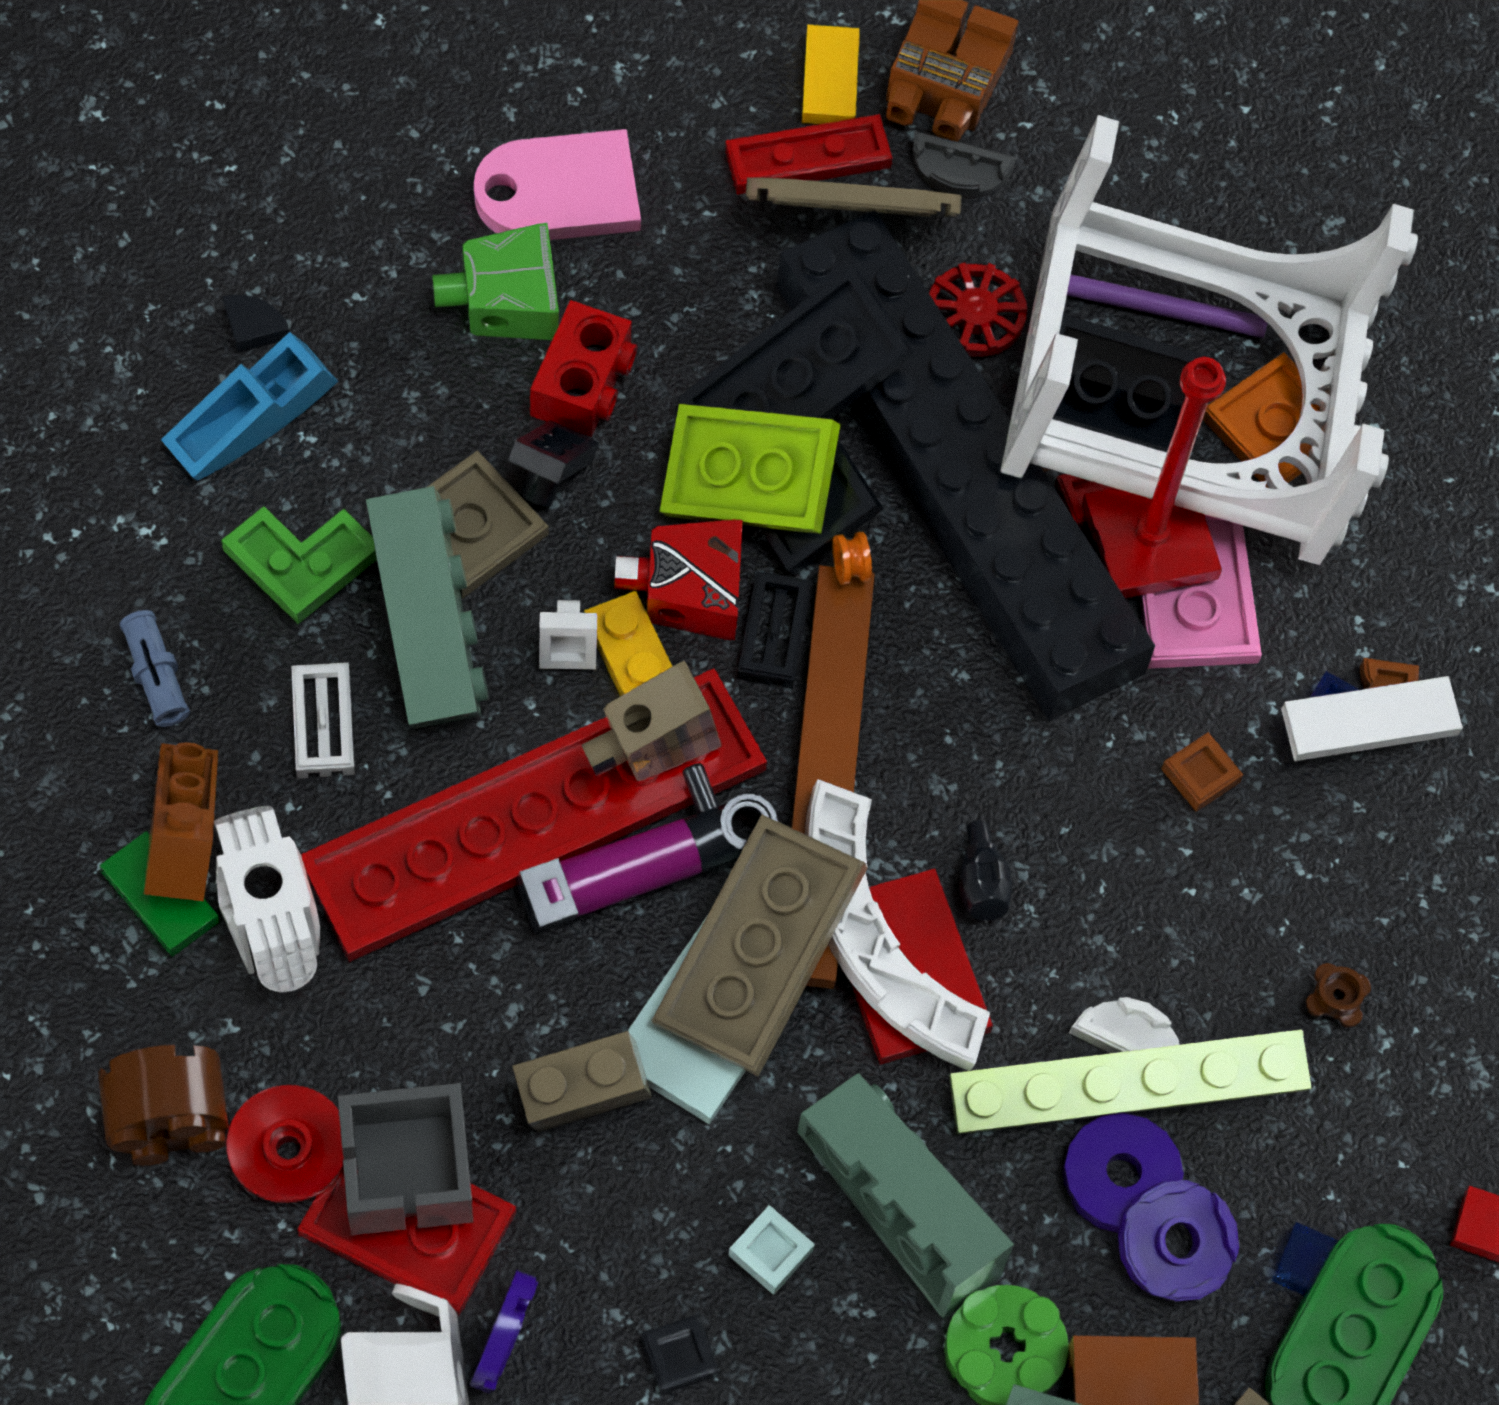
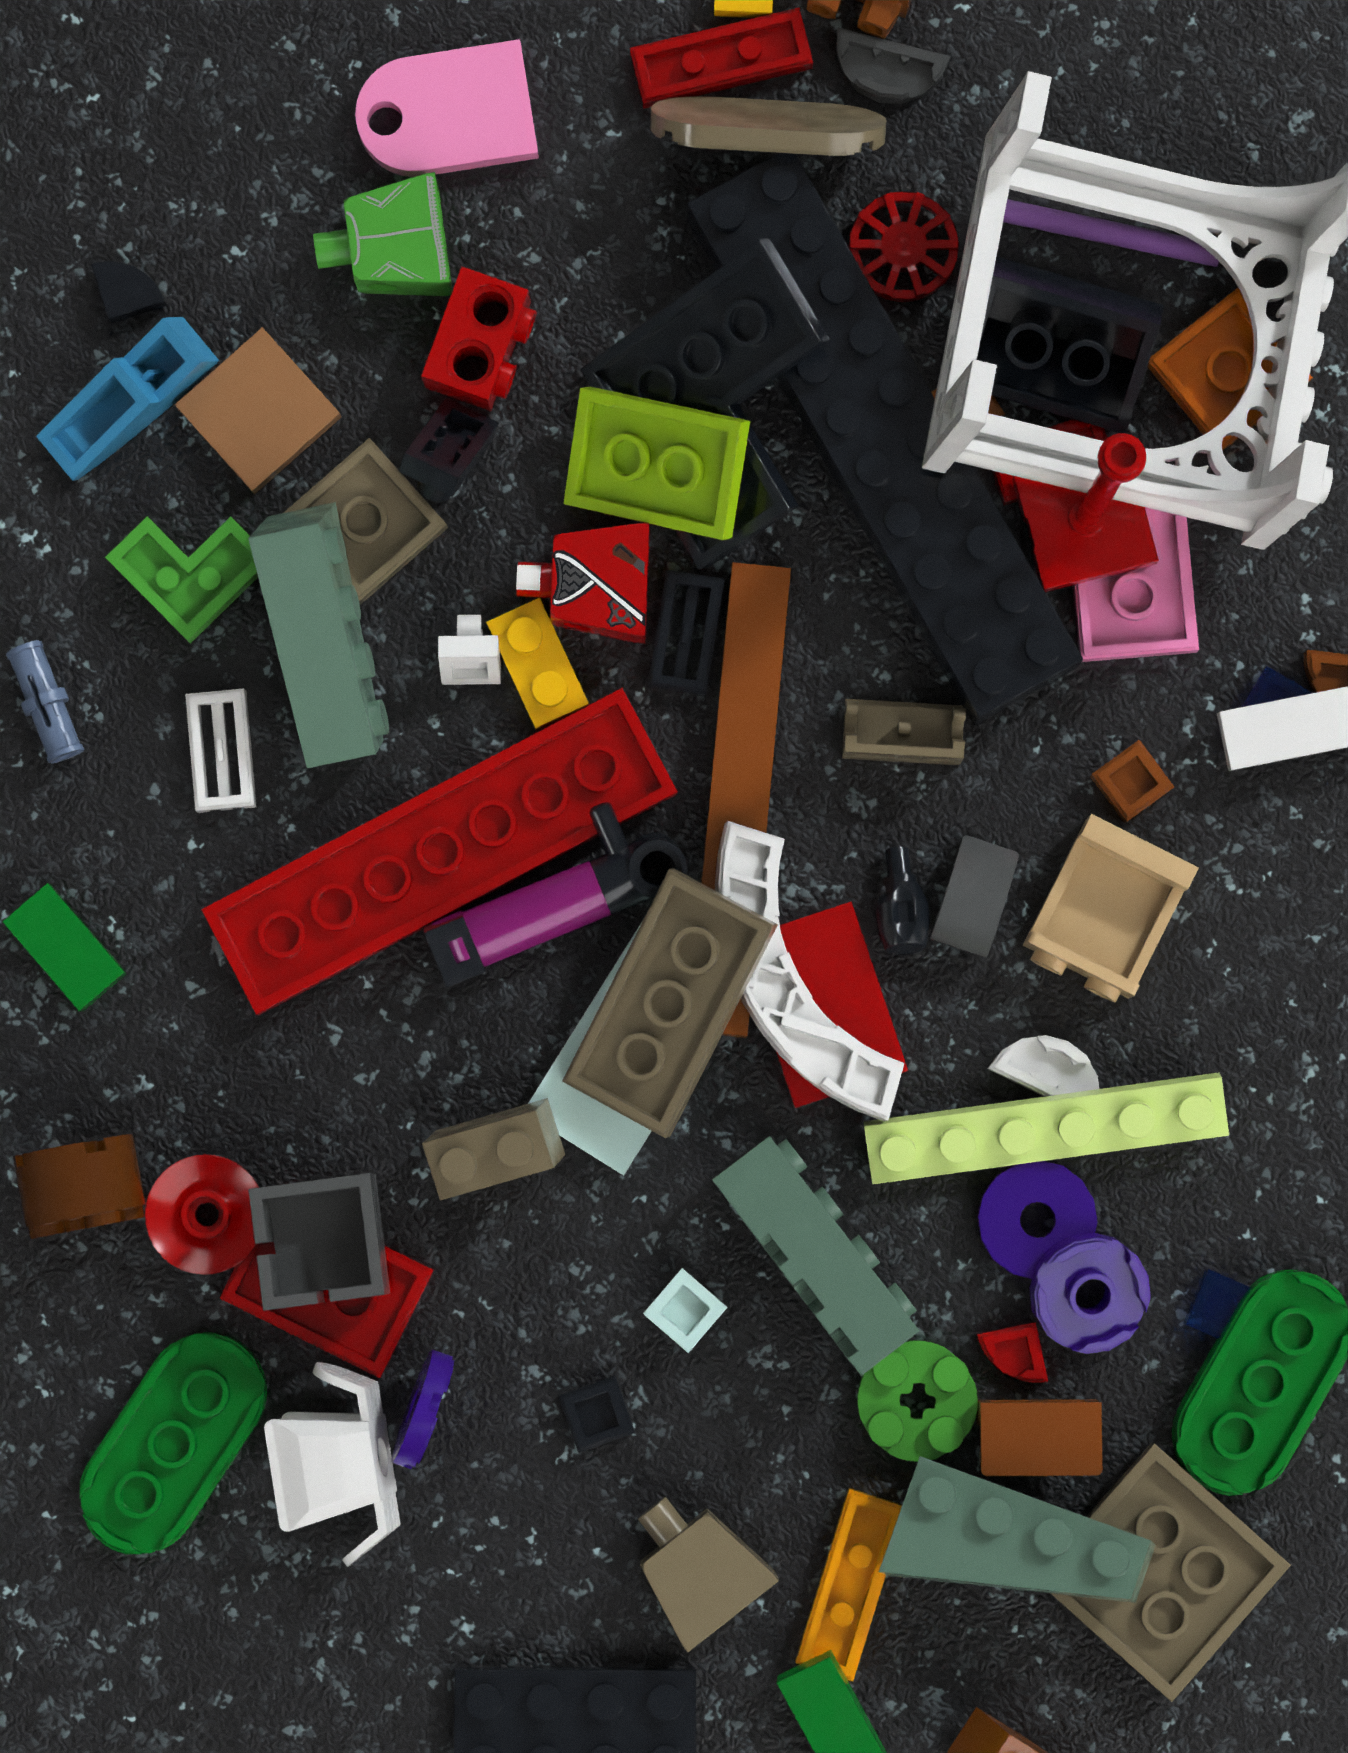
camera: 10 degrees right, 20 degrees up
(182, 822) = (81, 876): dark orange slope -> none
(281, 928) = (178, 1005): white piece -> none
(372, 426) = (258, 410): none -> medium nougat tile
(655, 726) = (581, 765): dark tan torso -> none
(852, 558) = (765, 561): orange bush -> none
(983, 722) = (903, 732): none -> dark tan hinge
(1054, 869) = (975, 896): none -> dark grey panel
(1104, 1302) = (1015, 1352): none -> red tile
(1185, 879) = (1108, 908): none -> tan panel
(1342, 979) = (1278, 1017): reddish brown plate -> none

